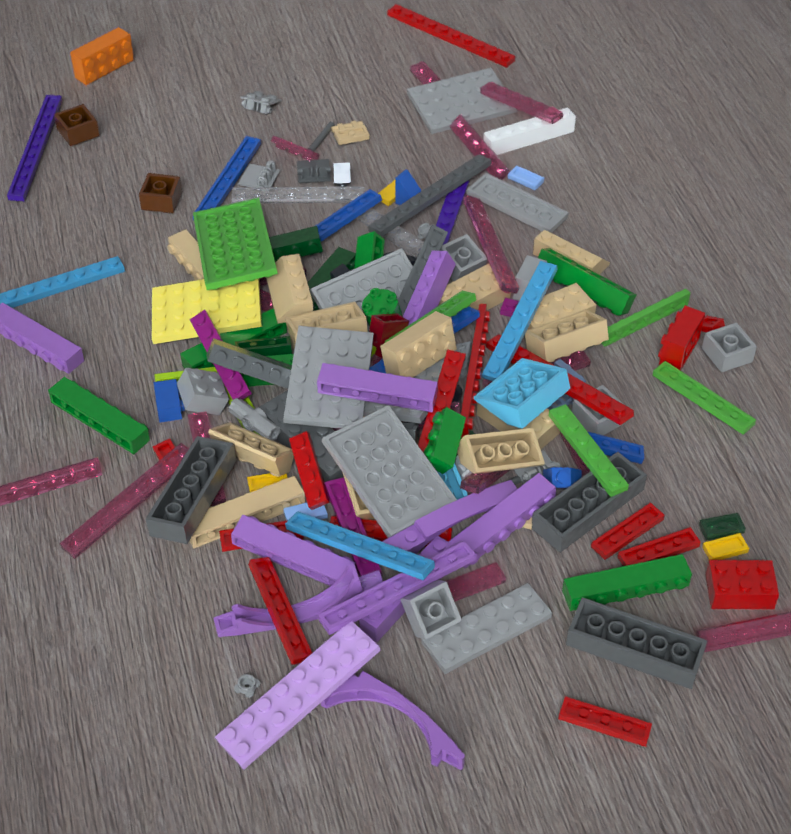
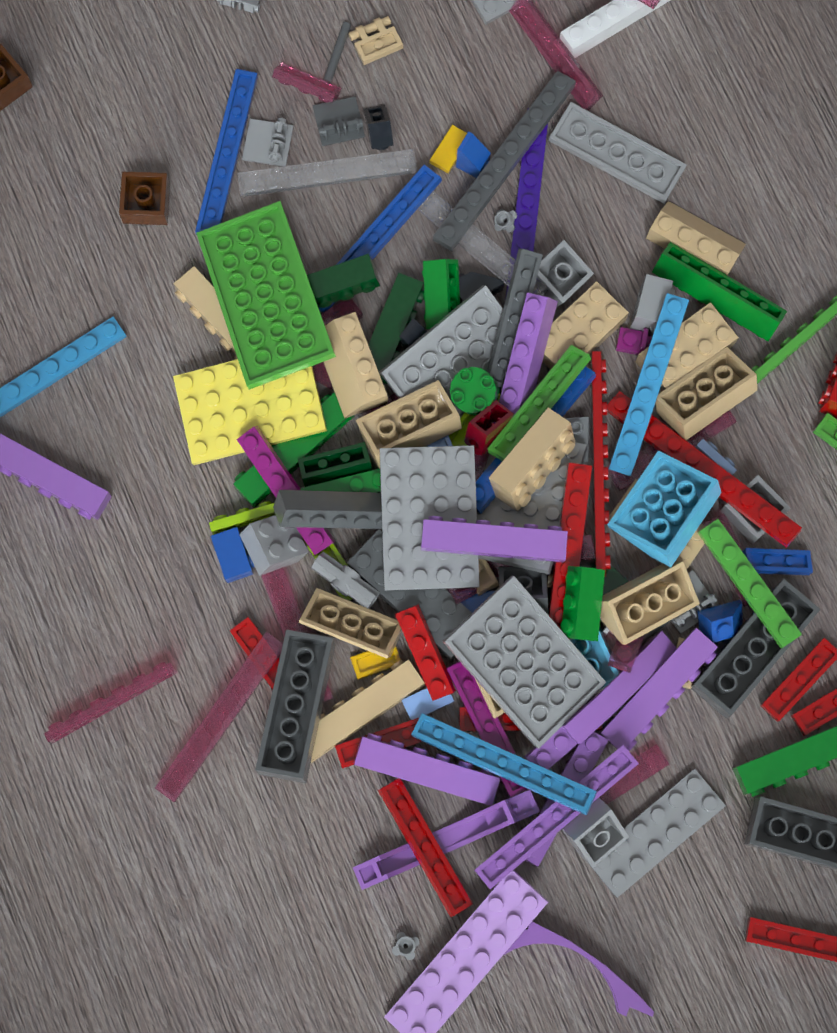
camera: 10 degrees left, 30 degrees up
(99, 415) = (152, 588): green brick -> none
(491, 245) = (594, 247): clear pink plate -> none
(525, 177) = (623, 98): light blue tile -> none

